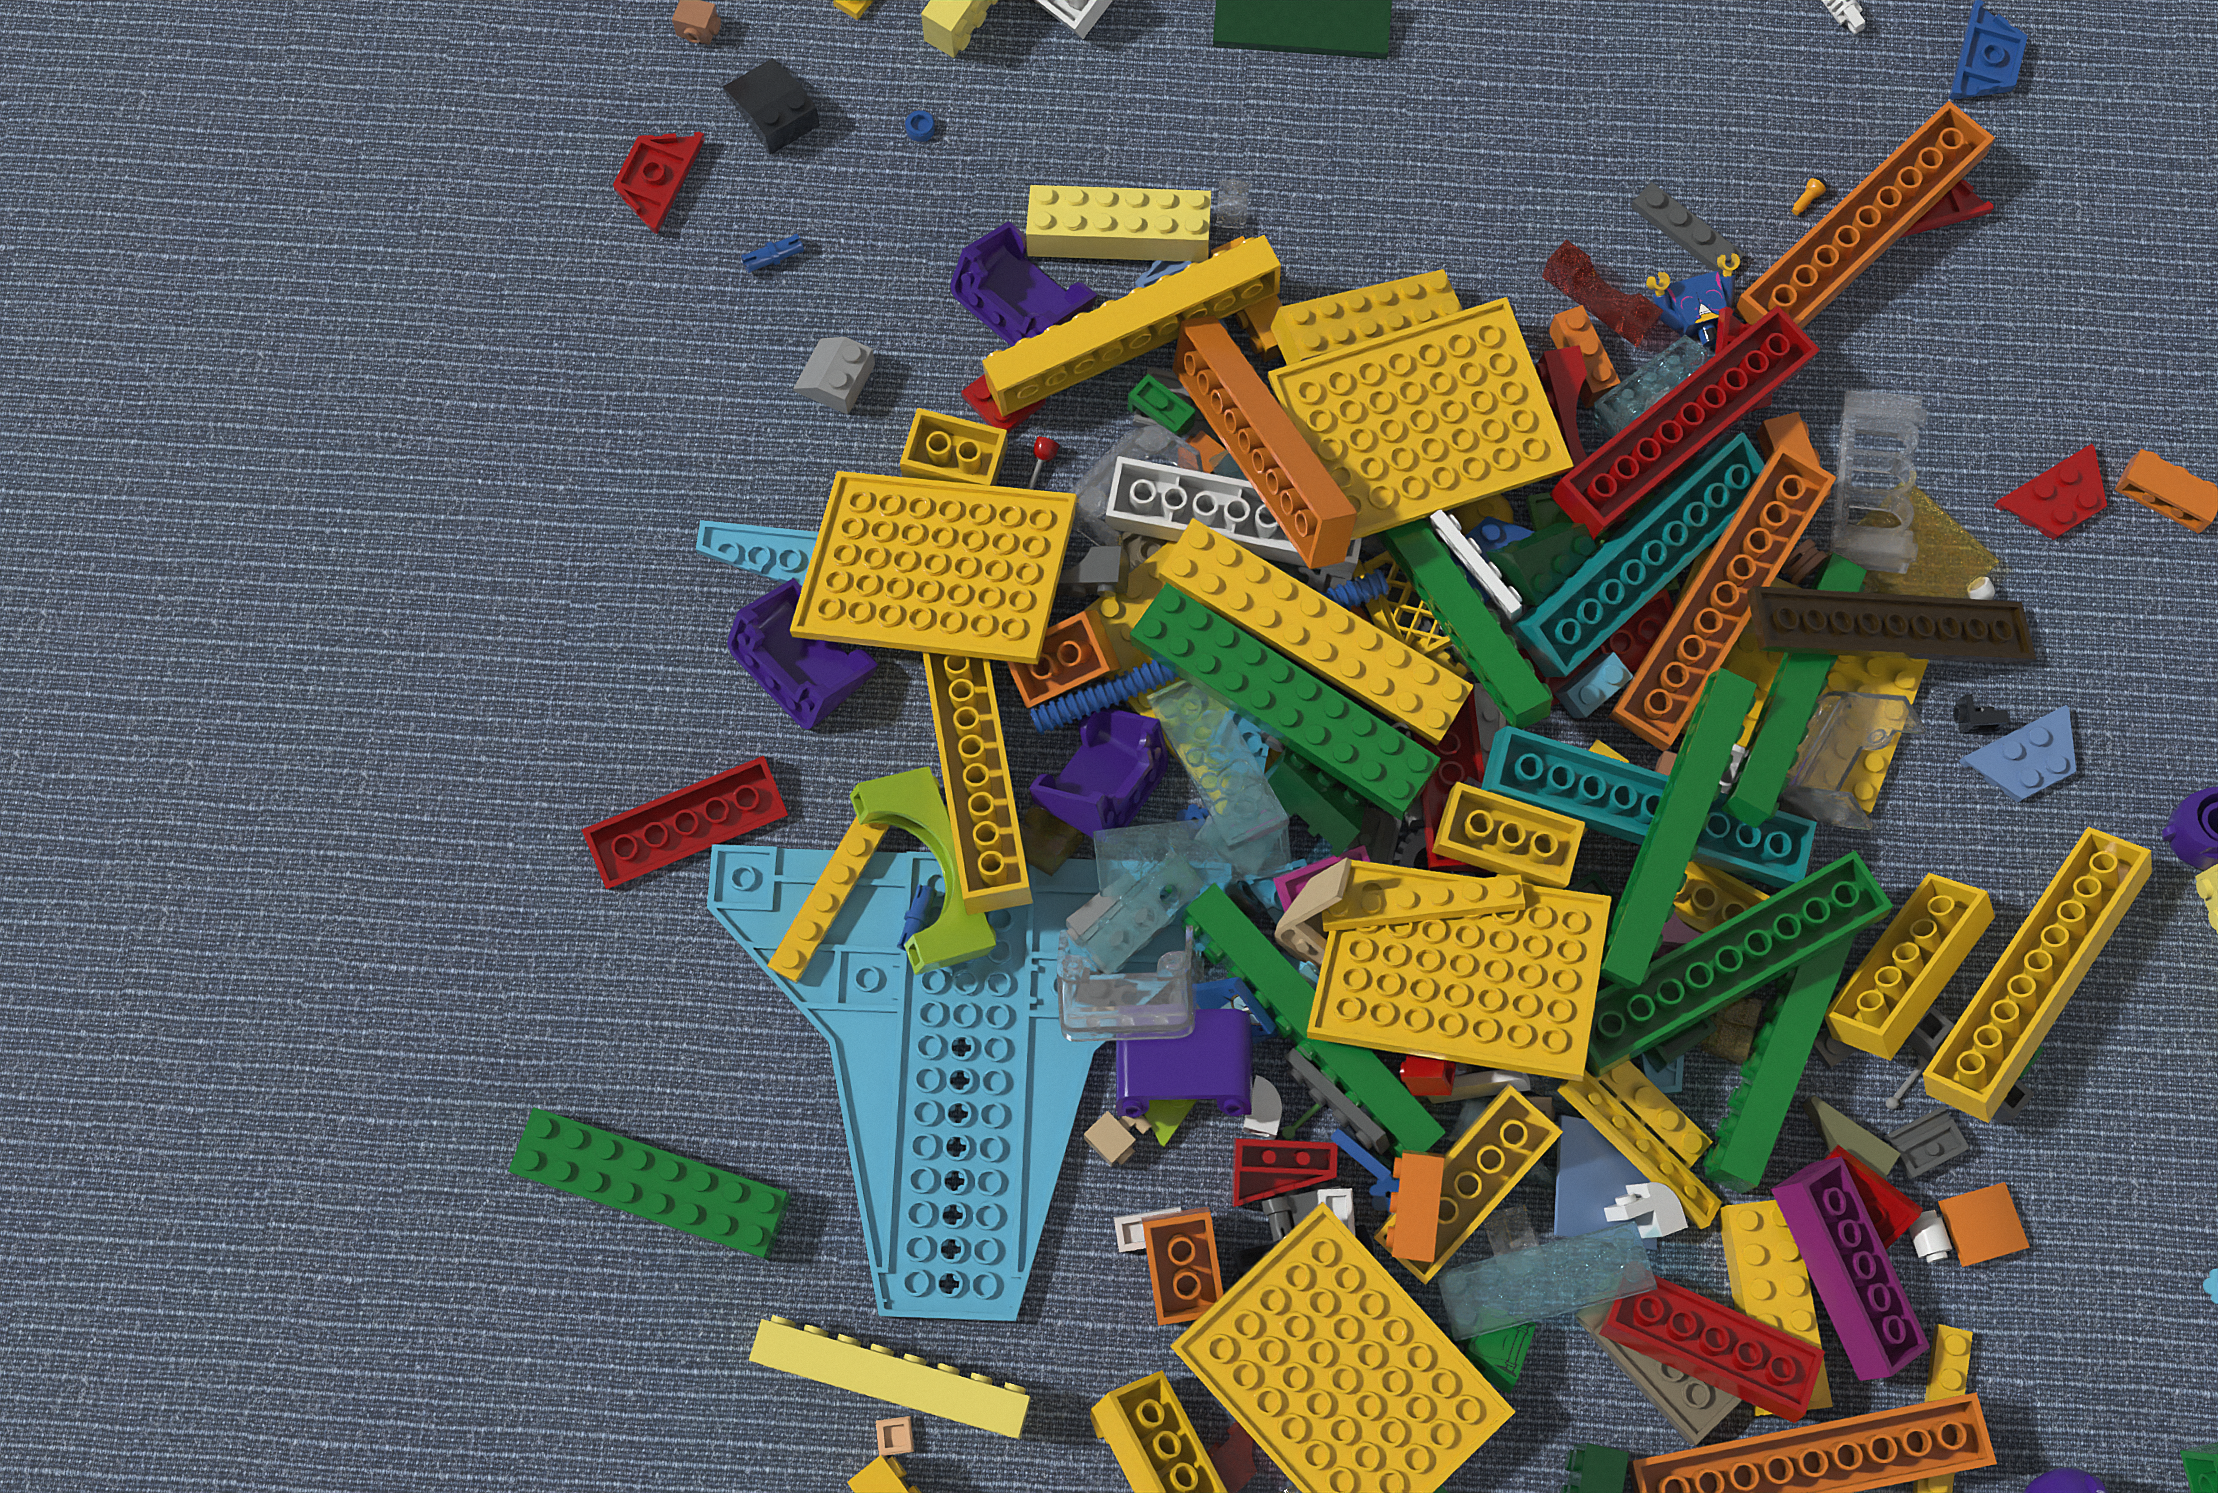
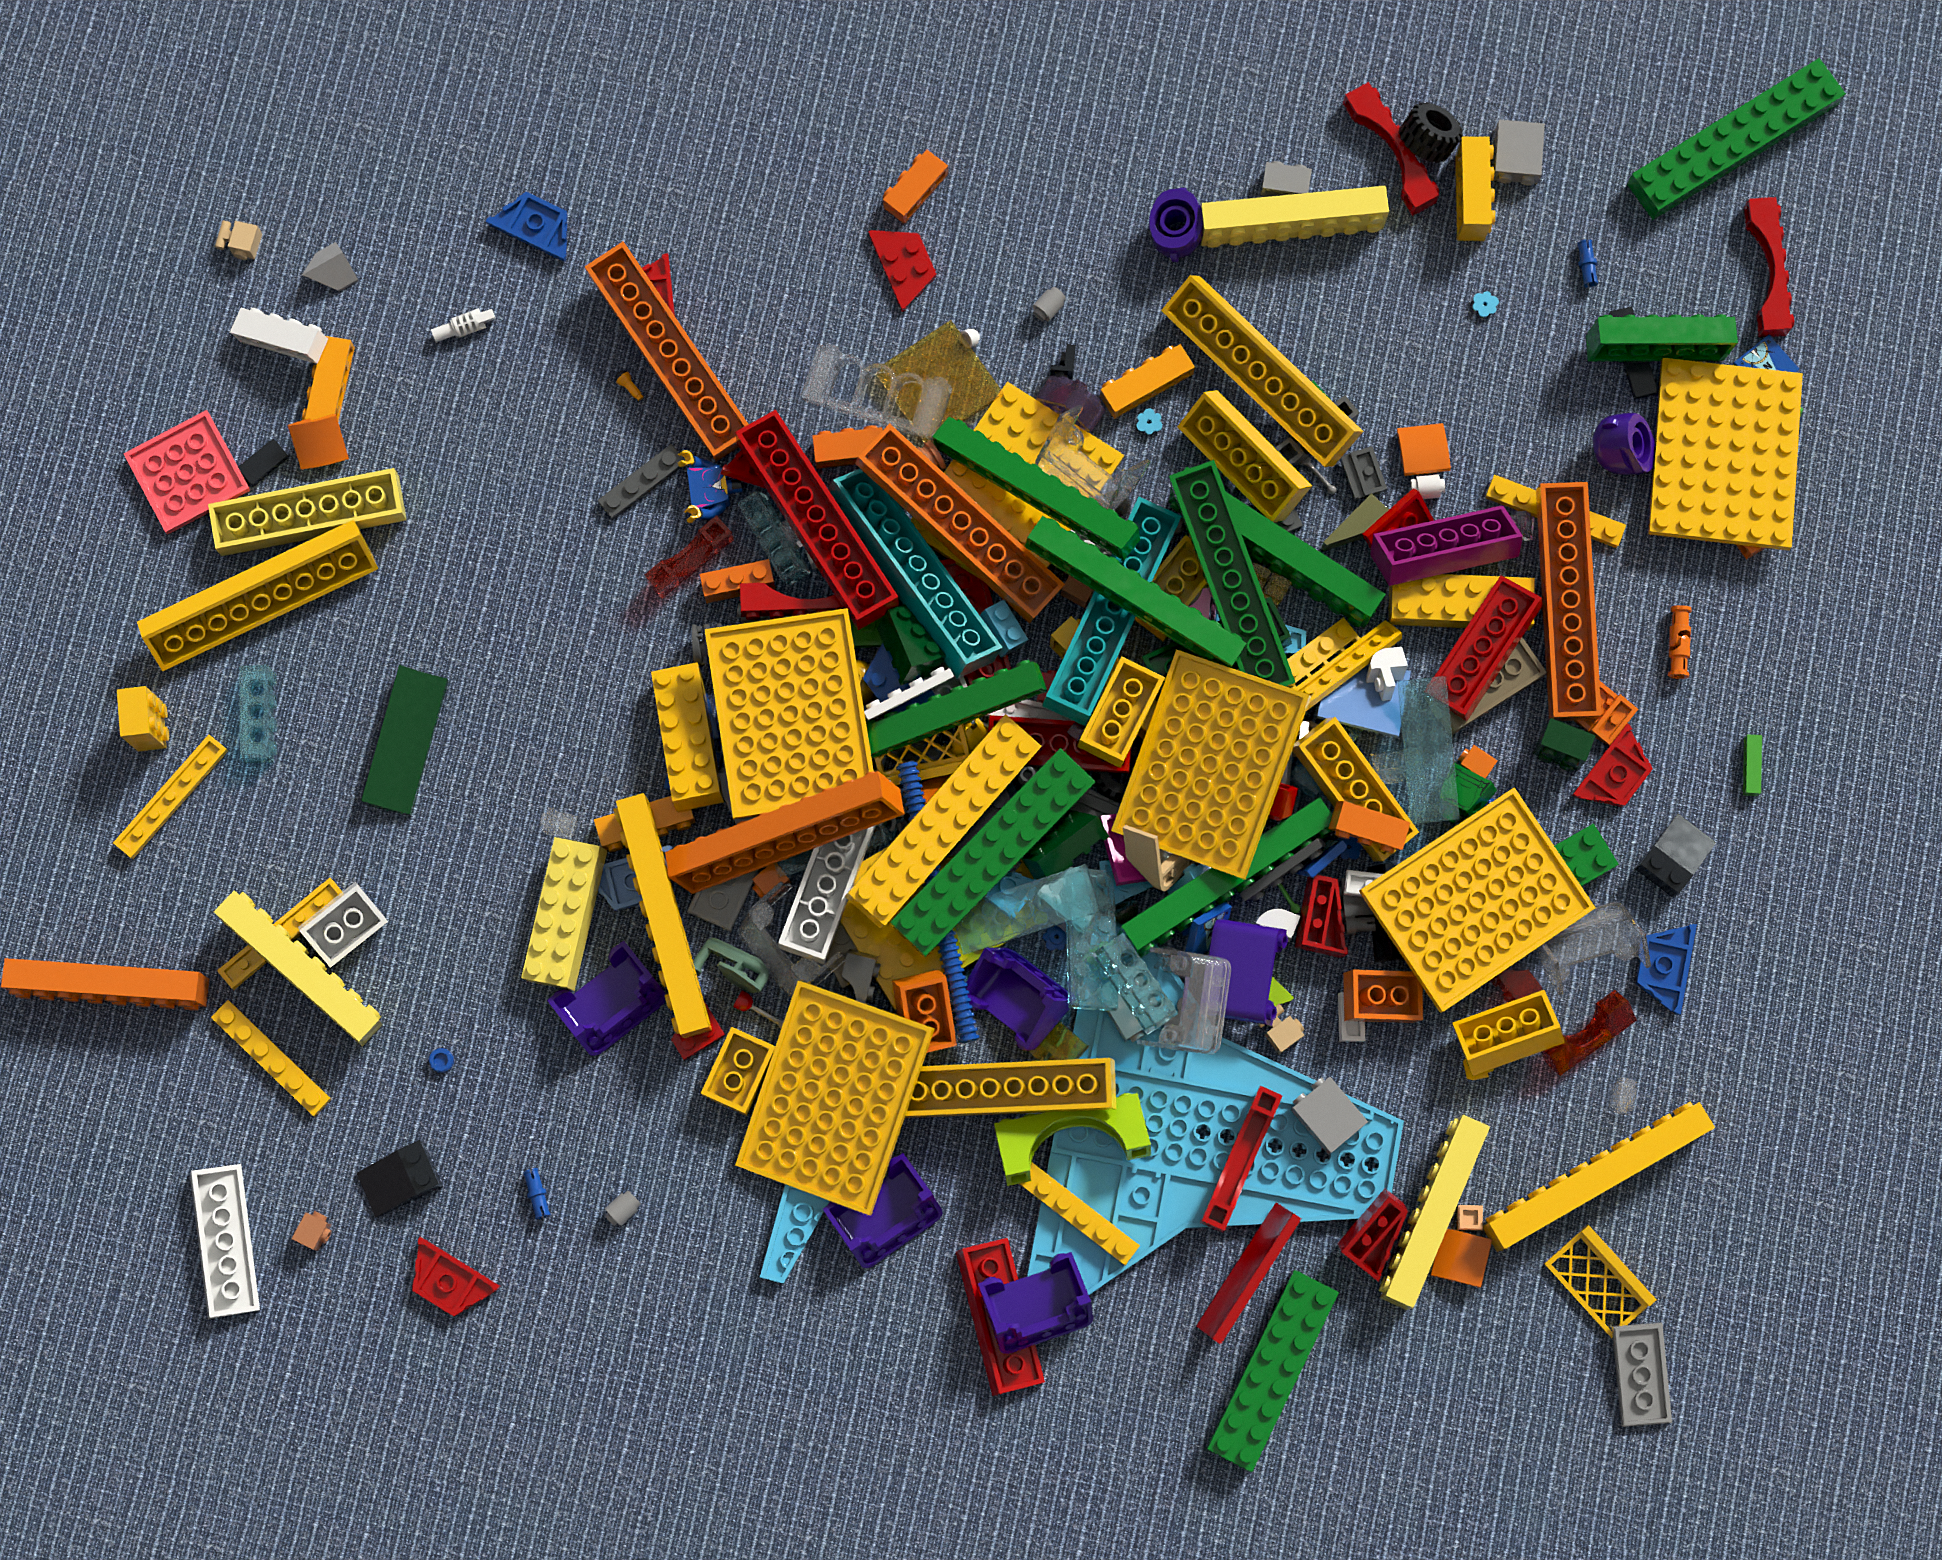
camera: 80 degrees left, 5 degrees up
(698, 855) = (1037, 1305): none -> dark purple windscreen
(766, 350) = (622, 1208): none -> light grey brick
(777, 1130) = (1248, 1272): none -> red arch
(836, 373) = (650, 1157): light grey slope -> none
(836, 1429) = (1461, 1258): none -> orange slope
(848, 1295) = (1373, 1234): none -> red wedge
(918, 915) = (1104, 1149): blue pin -> none
(926, 1098) = (1241, 1159): none -> red arch
(1006, 1210) = (1328, 1114): none -> light grey brick
(1095, 436) = (740, 959): none -> sand green piece
(1162, 406) = (730, 905): green panel -> none
(1425, 903) = (1159, 775): yellow plate -> none
(1543, 1360) = (1477, 761): none -> orange brick
(1890, 625) = (997, 410): dark brown plate -> none
(1908, 1385) = (1525, 524): none -> clear tile
(1933, 837) = (1149, 416): none -> medium azure plant
(1940, 717) = (1065, 394): none -> clear purple brick
(1983, 827) = (1146, 381): none -> light orange brick
(2028, 757) = (1098, 335): medium blue wing -> none
(2055, 683) = (1049, 304): none -> light grey brick

